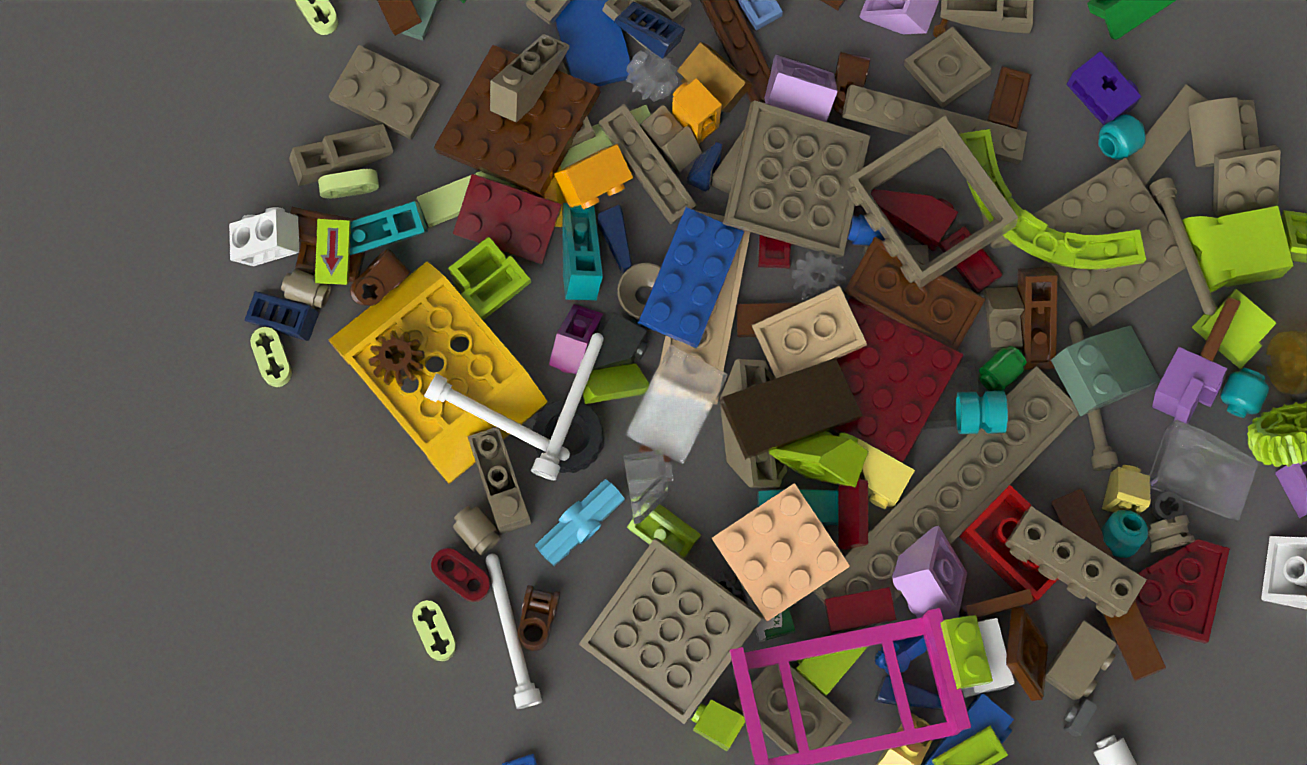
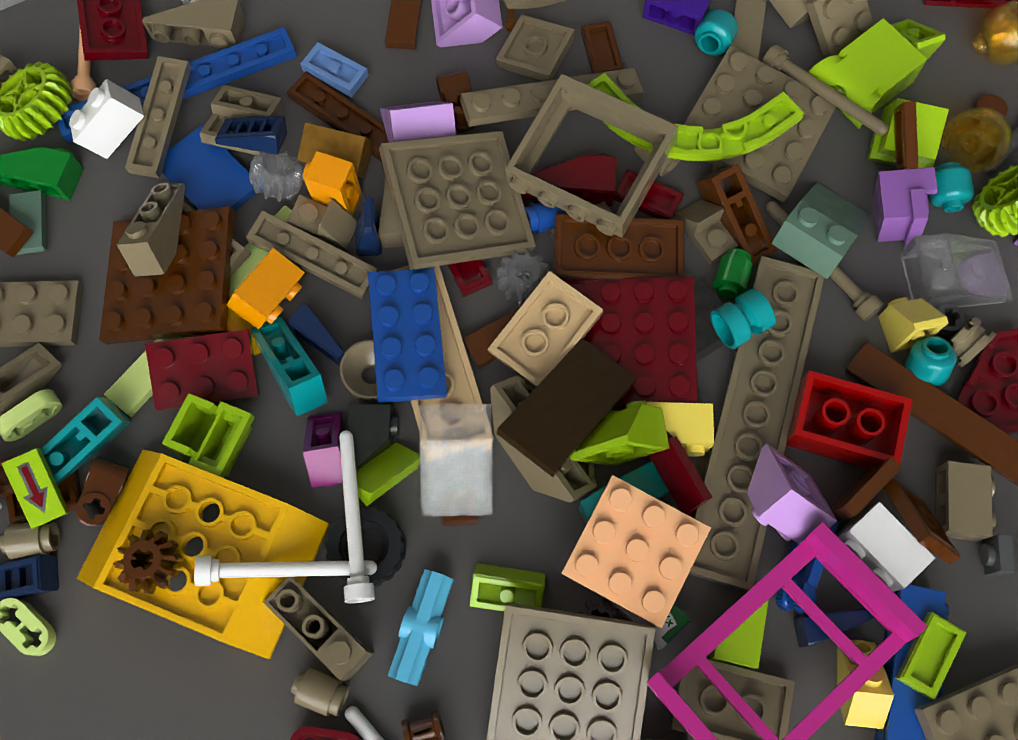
camera: 25 degrees left, 5 degrees down
(646, 482) = (466, 551): clear slope -> none
(860, 609) = (739, 565): dark red tile -> none
(966, 652) = (876, 552): lime plate -> none
(1074, 562) = (916, 409): dark tan brick -> none

